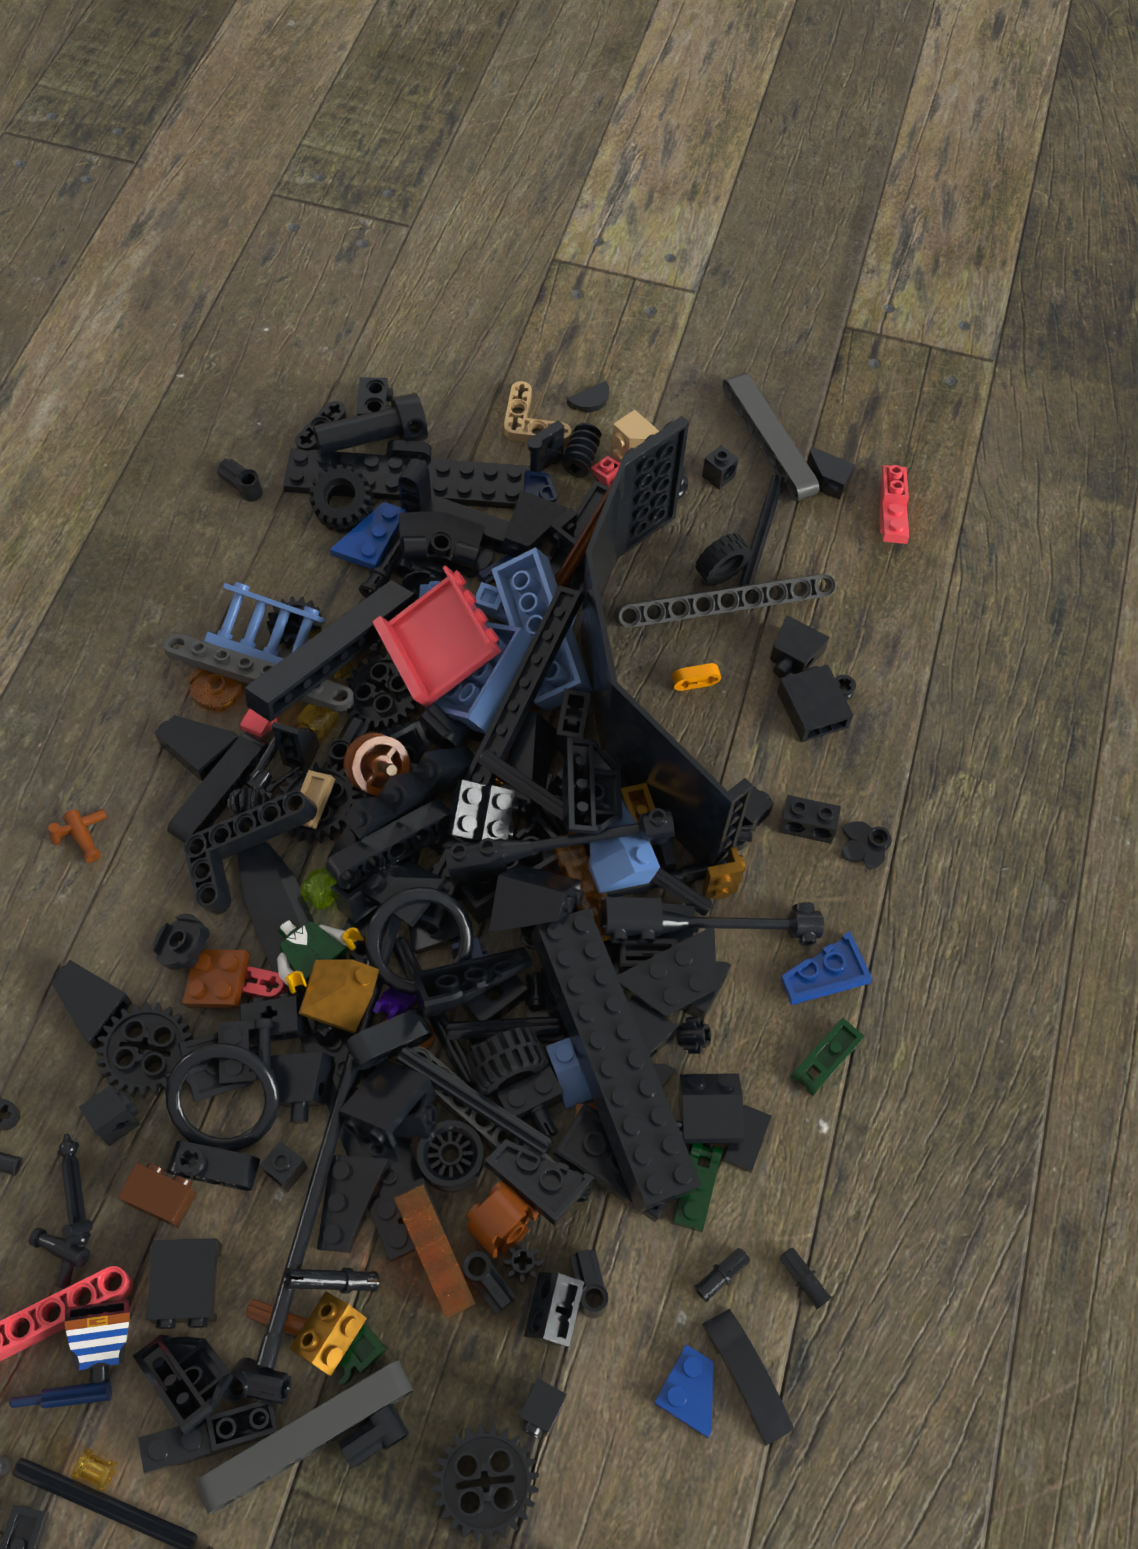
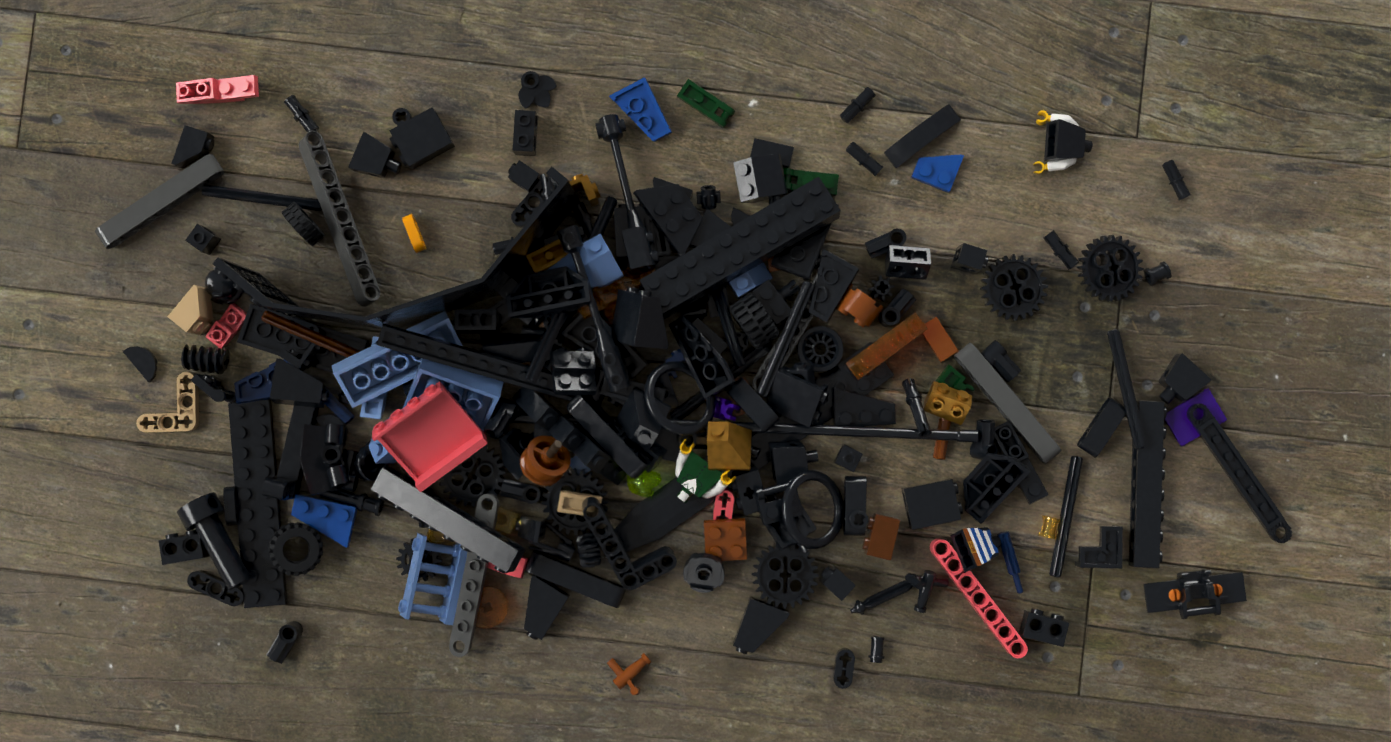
camera: 90 degrees left, 25 degrees up
(429, 1342) = (939, 340): none -> dark orange tile
(869, 577) = (300, 114): none -> black pin

